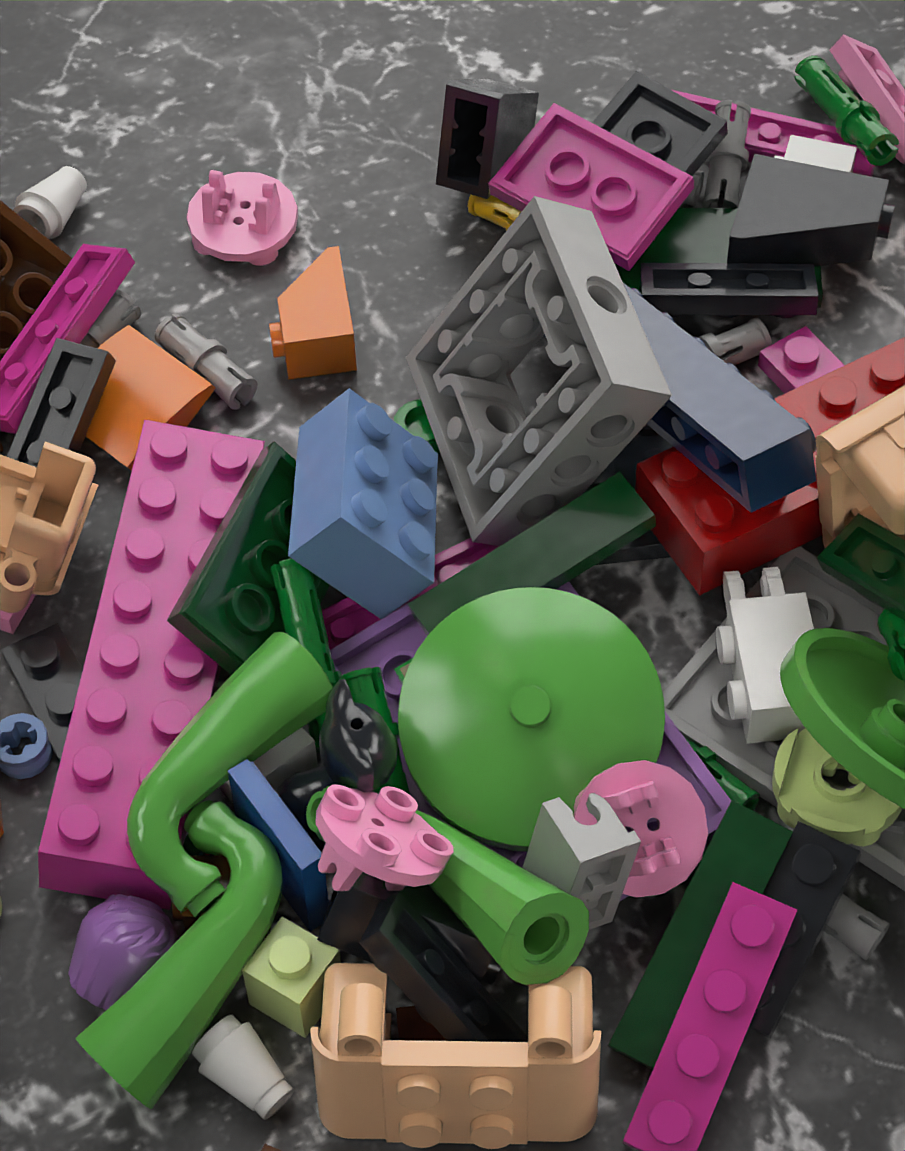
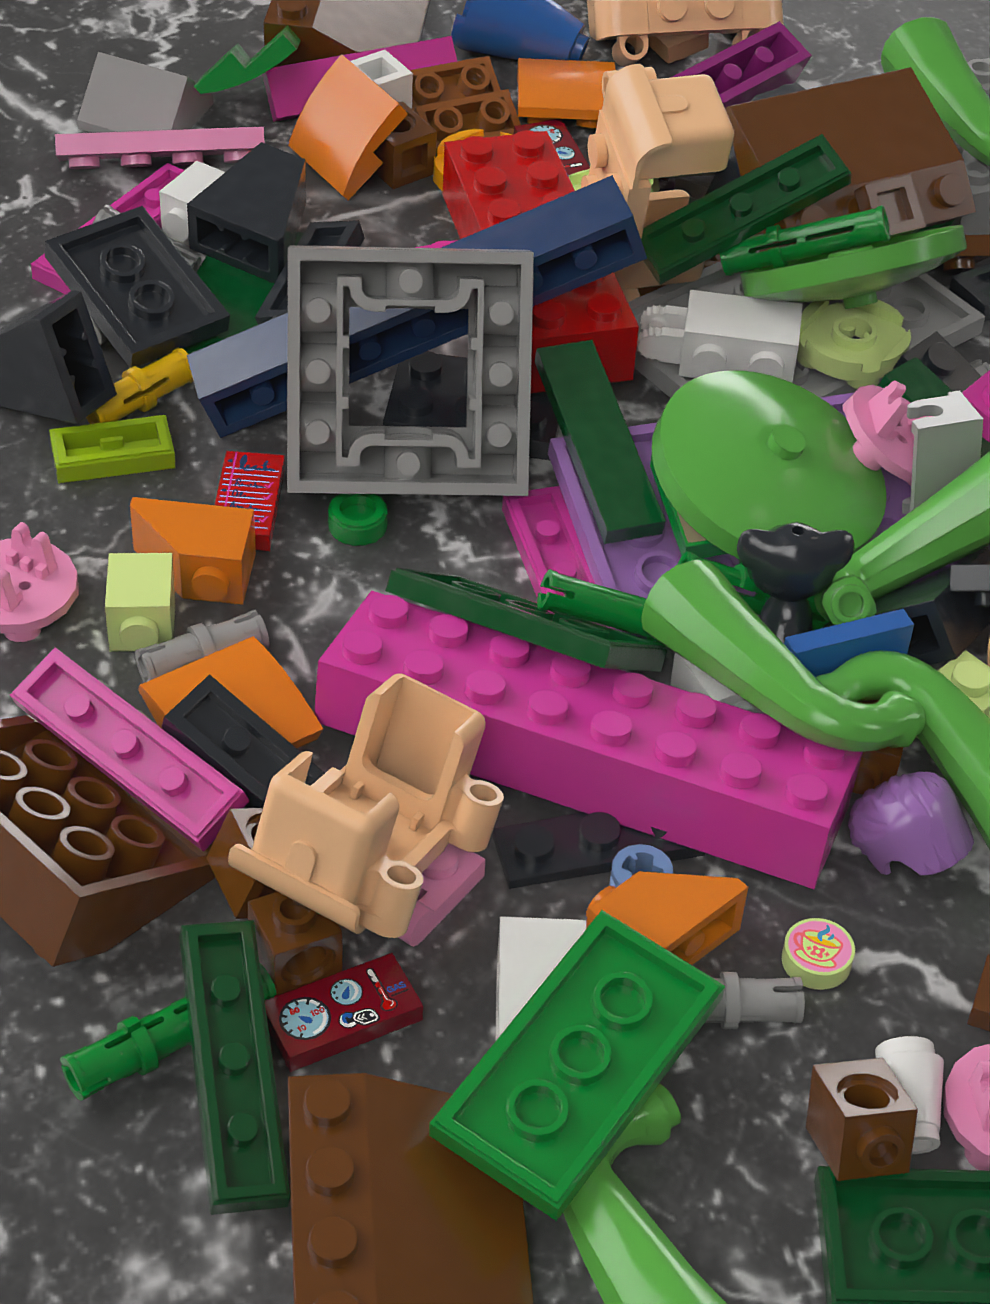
camera: 80 degrees left, 10 degrees down
(235, 299) = (139, 600): none -> yellowish green brick
(364, 504) = (486, 523): medium blue brick -> none
(378, 837) = (914, 557): bright pink plate -> none
(387, 340) = (253, 483): none -> red tile
(463, 257) = (112, 448): none -> lime tile
(595, 171) = (167, 310): dark pink tile -> none
(855, 119) = (147, 161): green pin -> none

